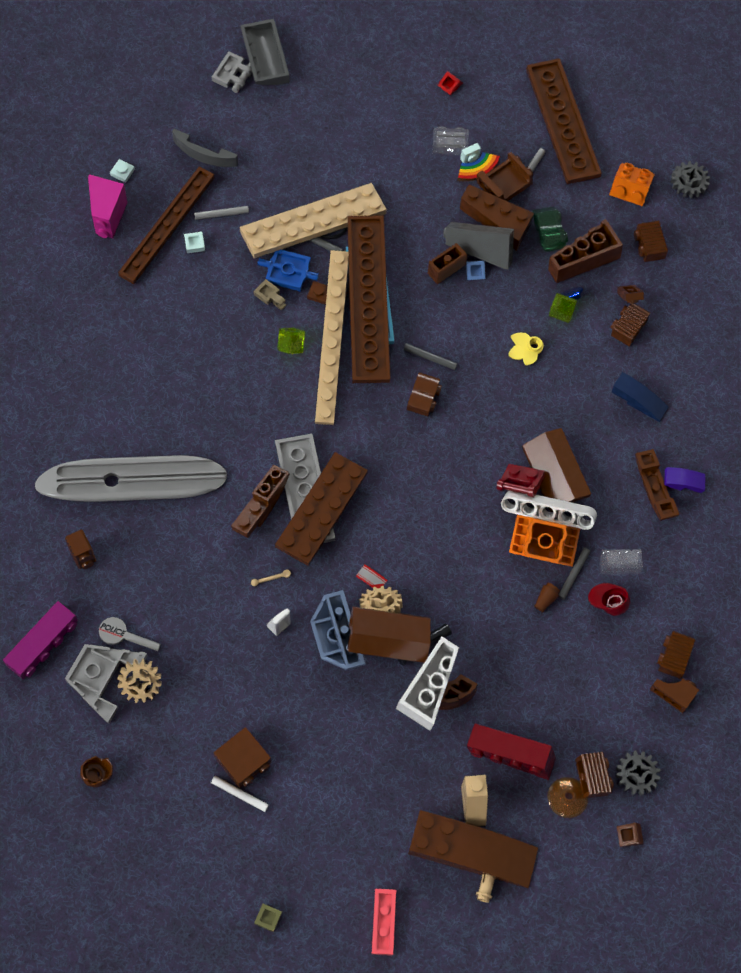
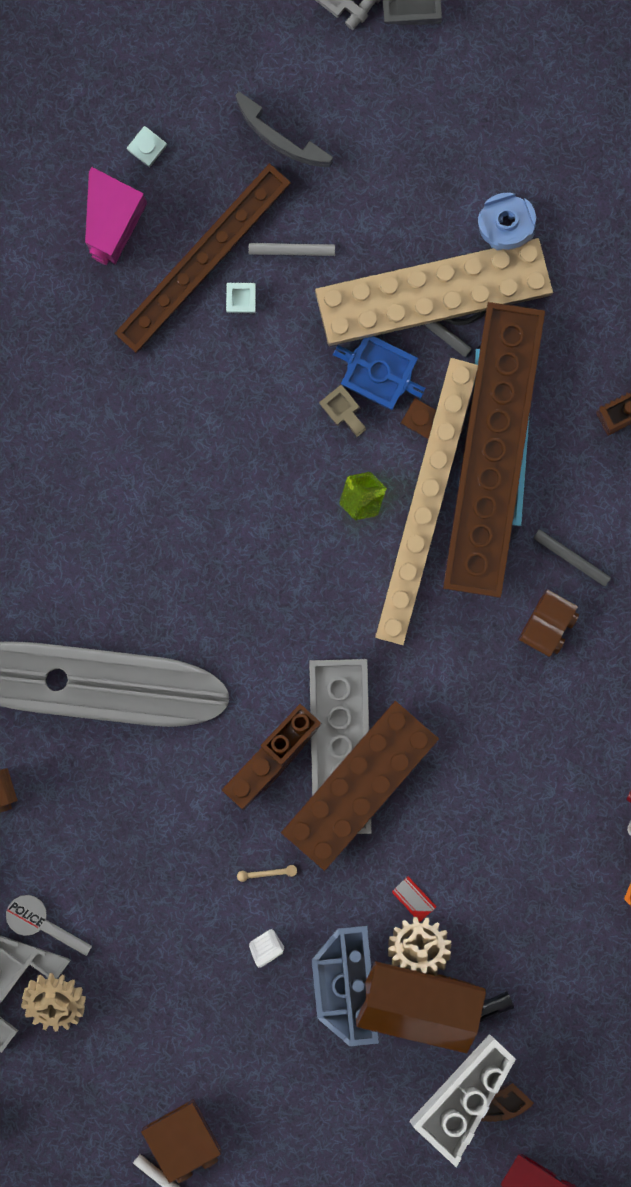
camera: 15 degrees right, 20 degrees up
(358, 176) = (504, 236): none -> medium blue plate

